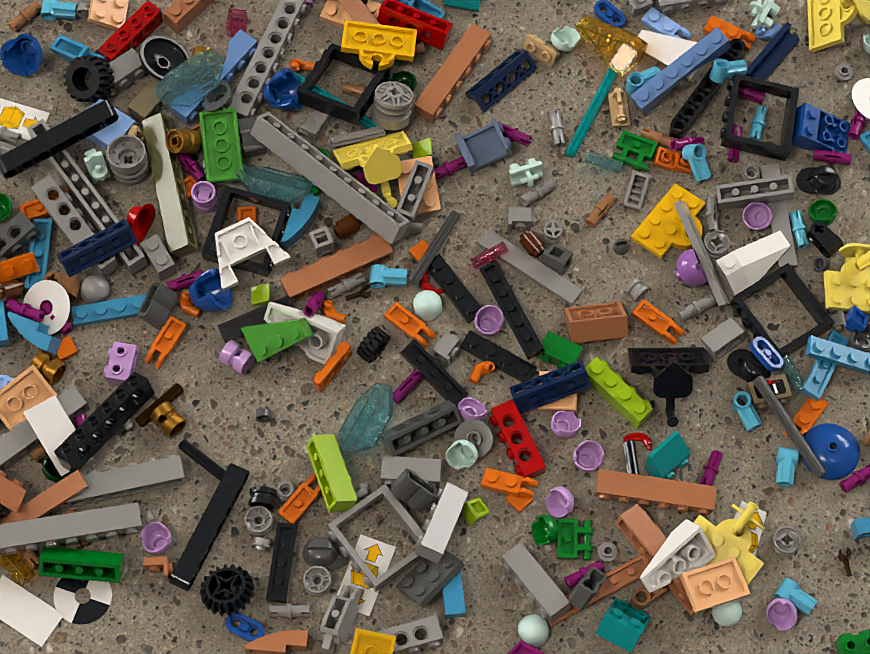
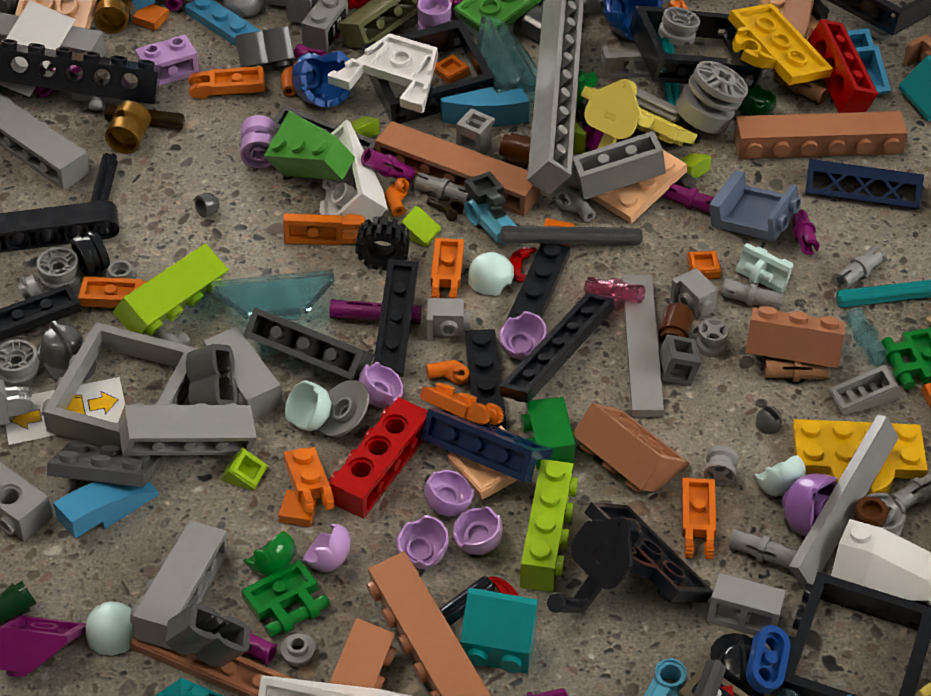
camera: 55 degrees right, 20 degrees down
(336, 83) = (679, 26): none -> light grey wheel
(366, 317) = (421, 226): none -> lime slope
(378, 267) = (488, 190): none -> pearl dark grey plate
(498, 198) = (705, 262): none -> orange tile
(517, 381) = (462, 404): none -> orange hinge
(588, 197) = (795, 336): none -> nougat slope
(598, 426) = (478, 531): none -> lavender hair
(662, 268) = (779, 478): none -> light aqua hair
(716, 248) = (871, 511): none -> reddish brown tile

